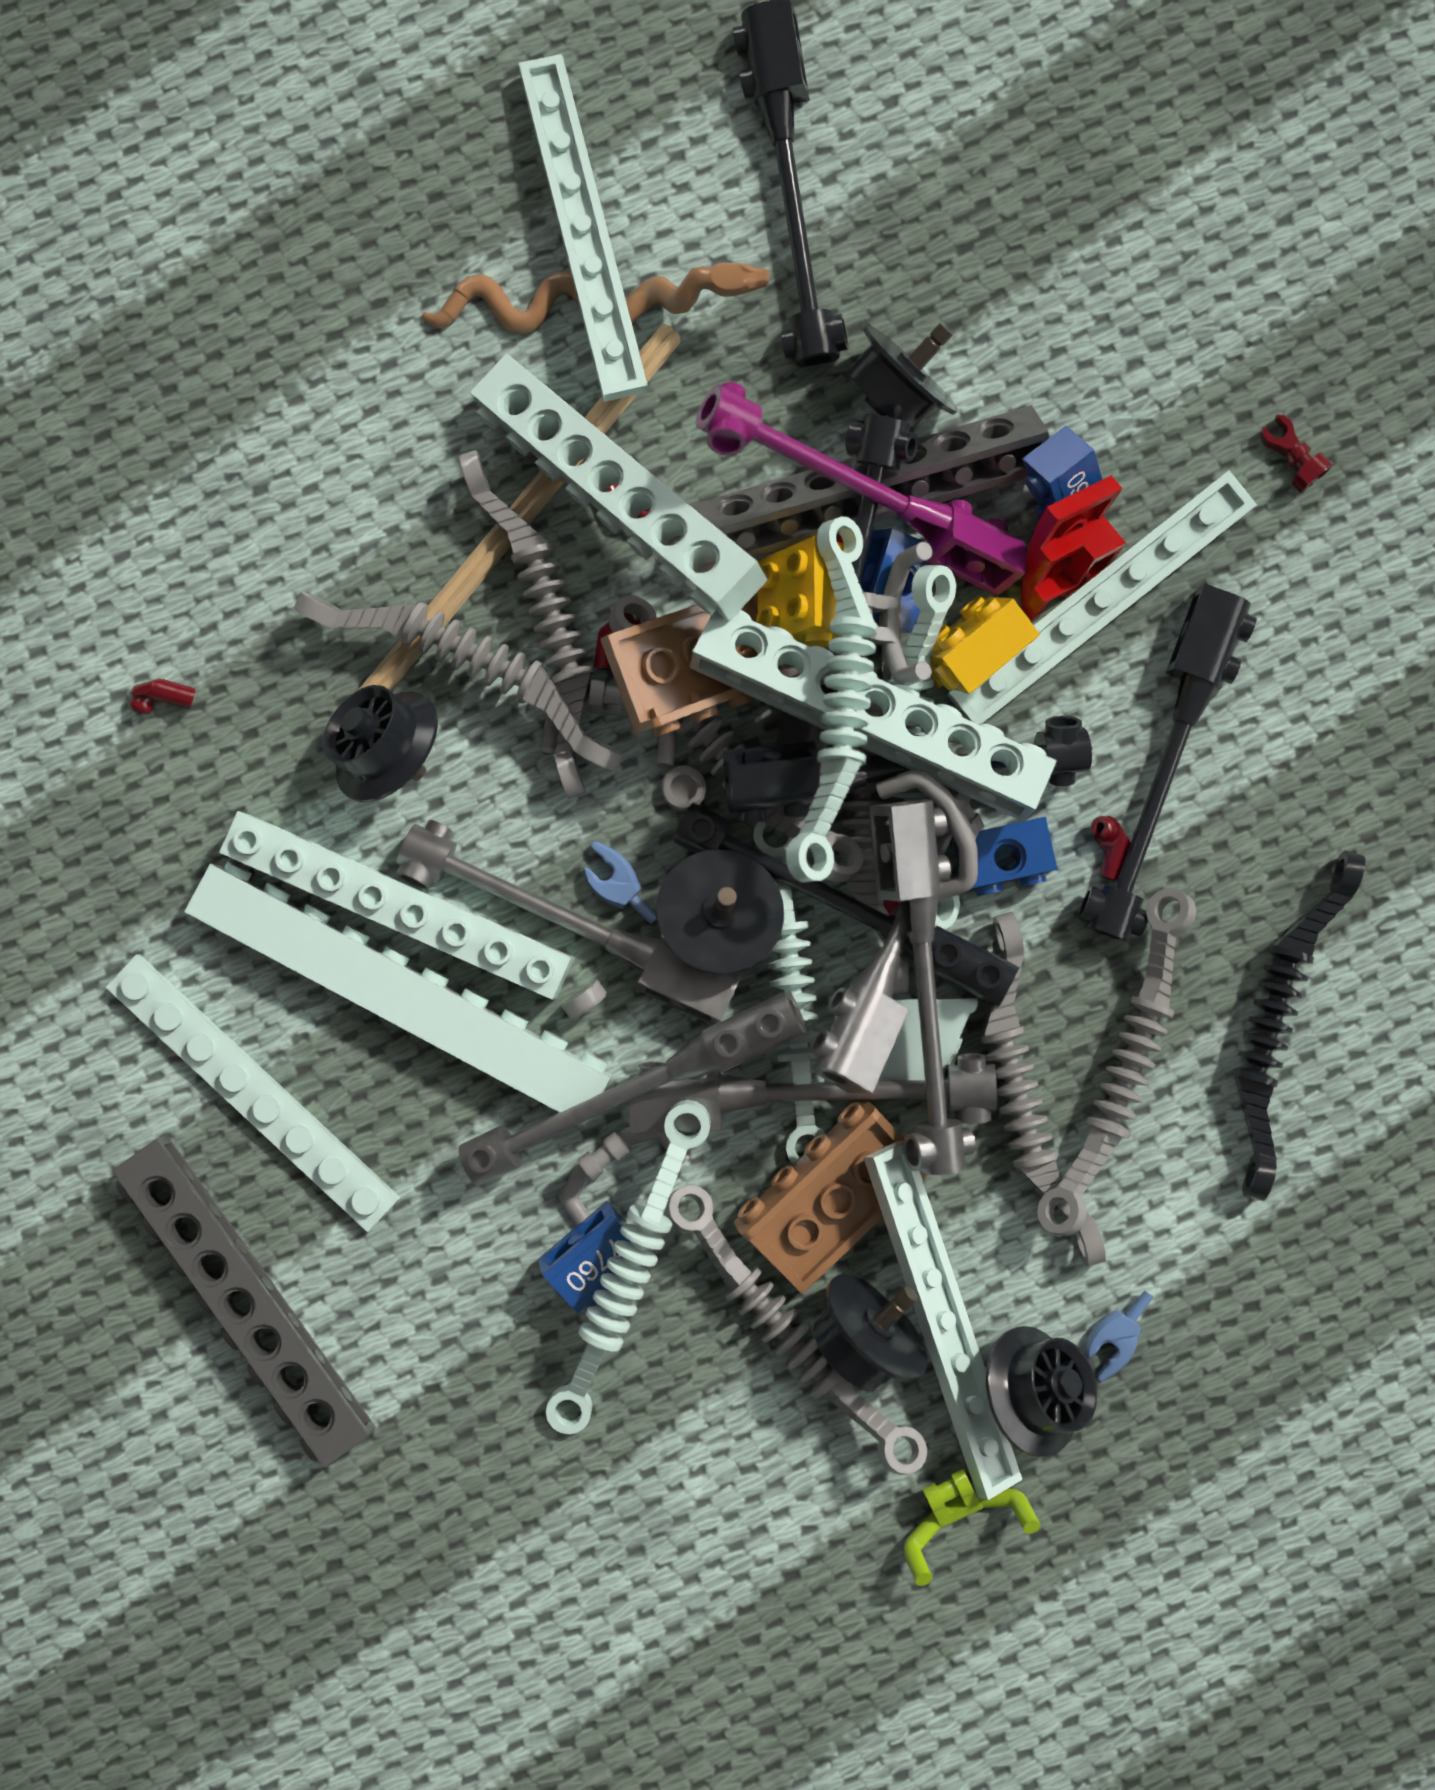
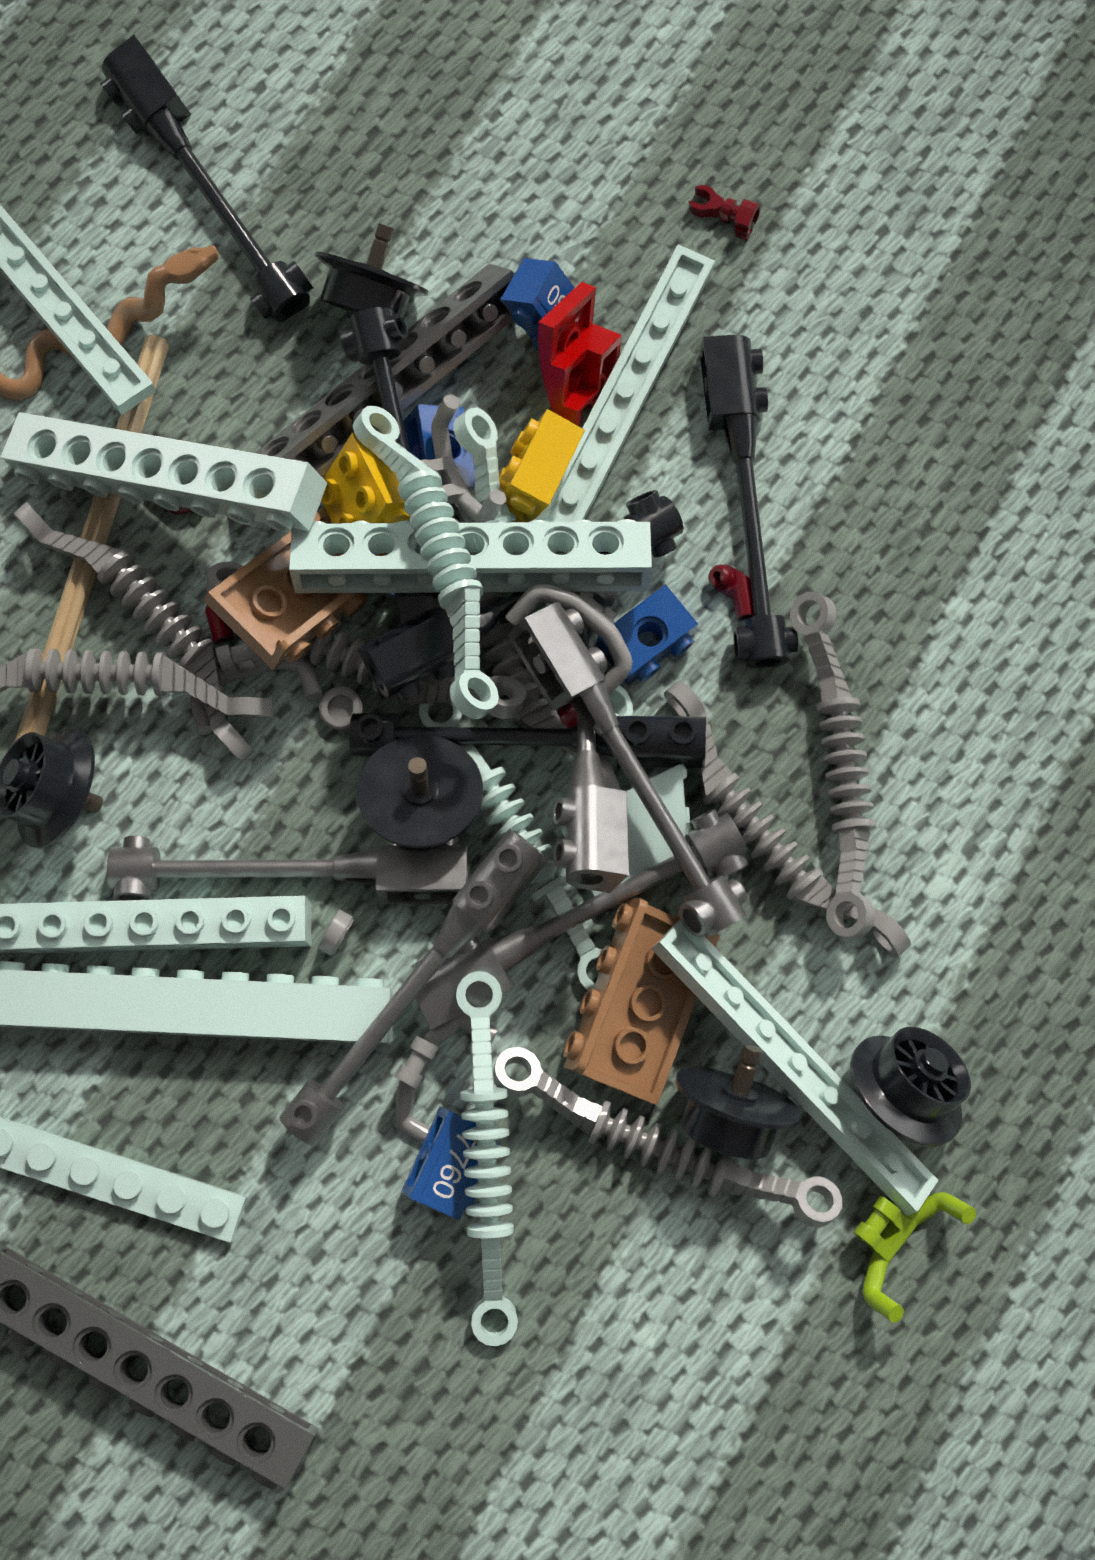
camera: 35 degrees left, 10 degrees down
(621, 887) = (324, 819): medium blue hand -> none
(964, 543) = (497, 391): magenta bar -> none
(1122, 1332) = (956, 1002): medium blue hand -> none
(1253, 1082) = (958, 729): black piece -> none

